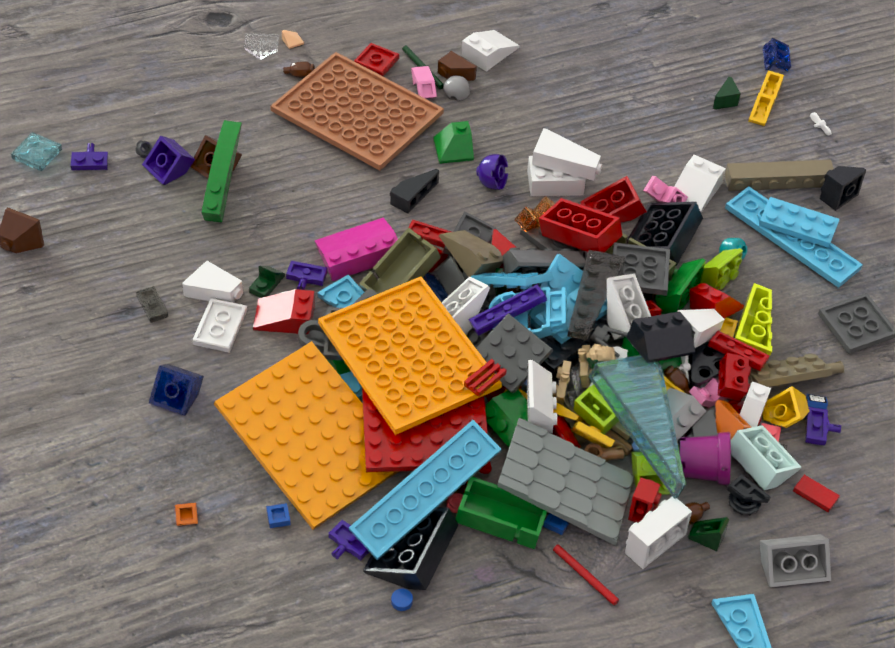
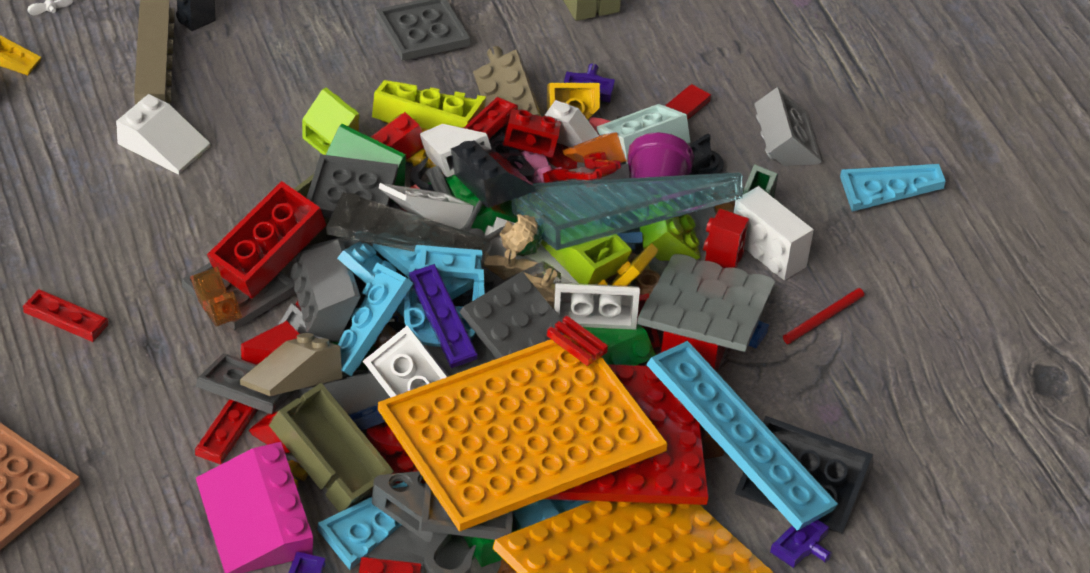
camera: 90 degrees left, 5 degrees down
(402, 599) = (883, 493): blue tile -> none
(413, 190) = (140, 445): black slope -> none
(454, 143) = (33, 388): green slope -> none
(492, 171) = (112, 341): dark purple cylinder -> none
(500, 513) = (760, 369): green piece -> none
(519, 158) = (65, 315): none -> red tile
(553, 183) = (125, 275): white brick -> none
(565, 156) = (117, 243): white slope -> none
(617, 200) = (191, 219): red slope -> none
(663, 193) = (179, 165): bright pink slope -> none
(668, 227) = (244, 170): black slope -> none
(712, 412) = (591, 161): none -> red piece
(734, 243) = (292, 112): teal head -> none
(799, 222) = (250, 46): medium azure plate -> none
(817, 401) = (551, 76): tile -> none
(828, 262) = (265, 61): medium azure plate -> none

